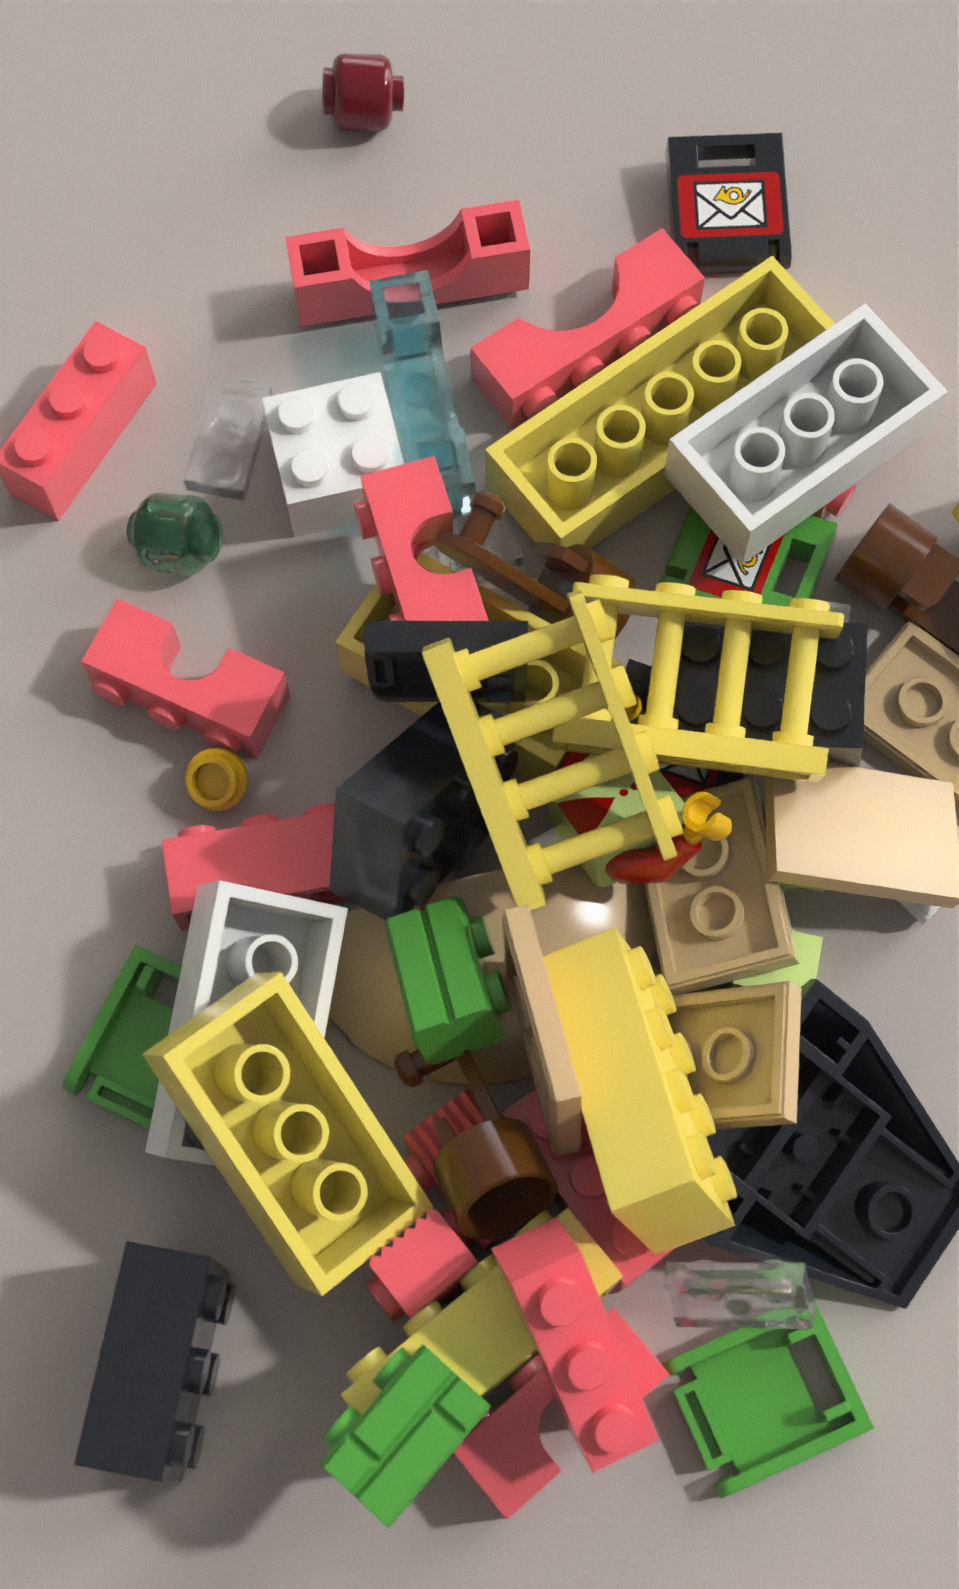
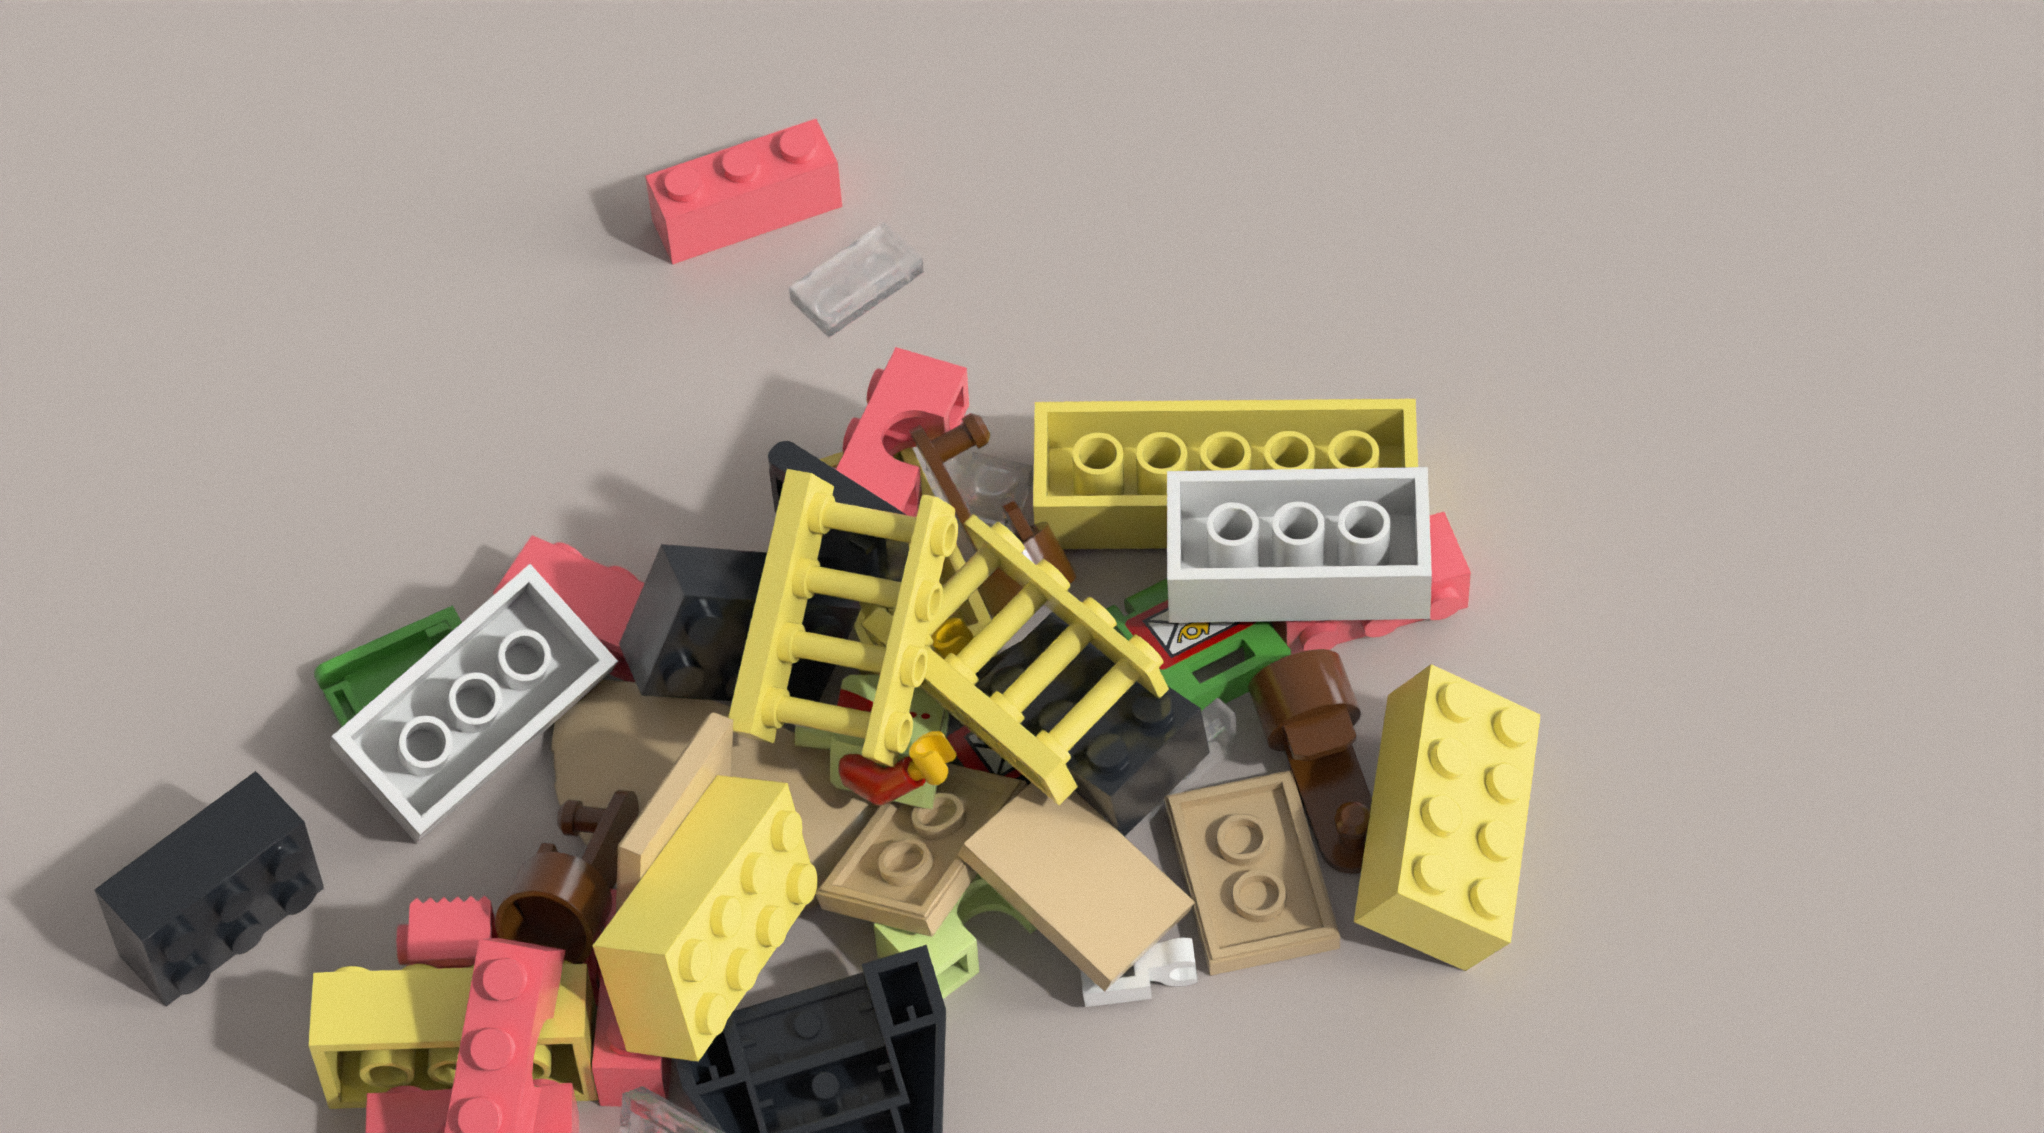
camera: 40 degrees right, 15 degrees down
(175, 533) = (746, 324): clear green head -> none
(216, 779) = (619, 528): yellow plate -> none
(230, 706) = (677, 479): coral arch -> none
(288, 1131) = (431, 768): light yellow brick -> none
(325, 443) = (931, 317): white brick -> none
(361, 92) = (1206, 70): dark red head -> none
(403, 1433) = (330, 1013): bright green brick -> none
(418, 381) = (1059, 303): clear light blue arch -> none
(445, 980) = (635, 750): bright green brick -> none
(473, 257) = (1055, 209): coral arch -> none
(533, 367) = (1149, 365): coral arch -> none
(729, 209) = (1445, 354): container -> none
(744, 1051) = (820, 961): tan tile -> none

